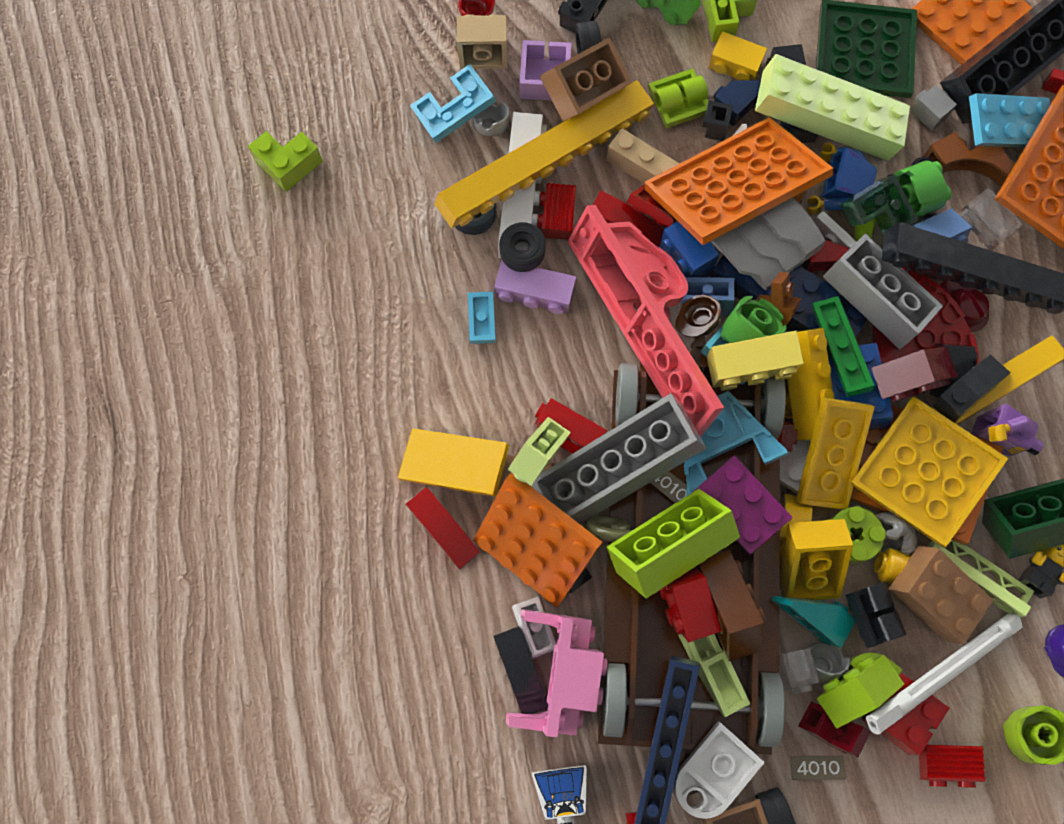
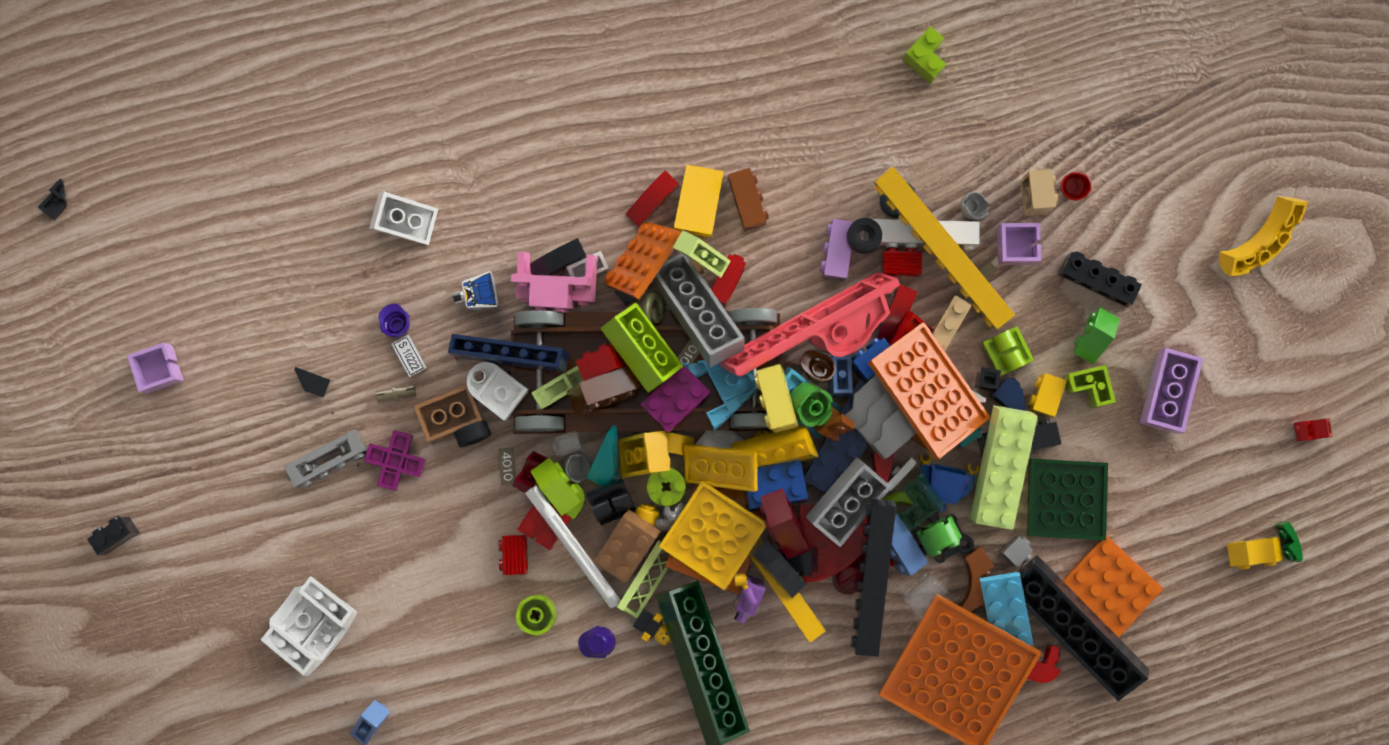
camera: 85 degrees right, 10 degrees up
(455, 398) = (748, 199): none -> dark orange brick
(472, 100) = (970, 171): medium azure plate -> none
(481, 317) = (811, 213): medium azure plate -> none
(585, 79) = (1005, 272): medium nougat brick -> none
(587, 35) = (1045, 276): black tyre -> none
(788, 436) = (732, 435): clear red plate -> none
(843, 347) = (801, 470): green plate -> none

